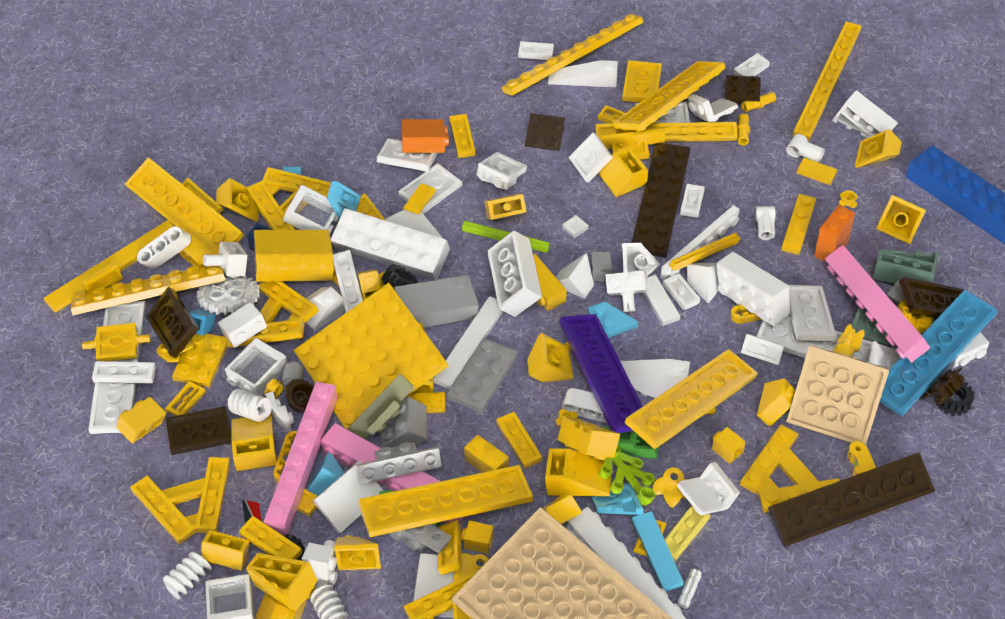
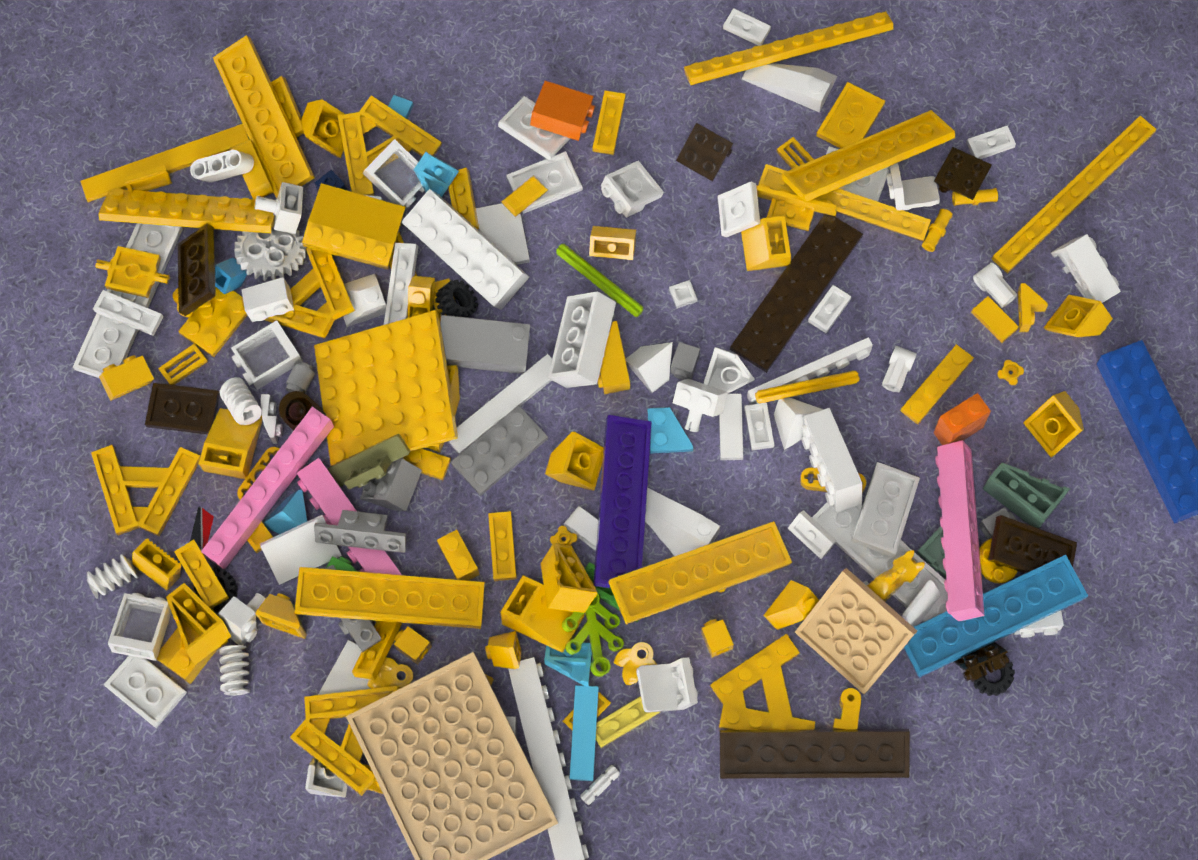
camera: 25 degrees right, 20 degrees up
(275, 387) = (274, 388): yellow plate -> none
(837, 154) = (1028, 303): none -> yellow slope

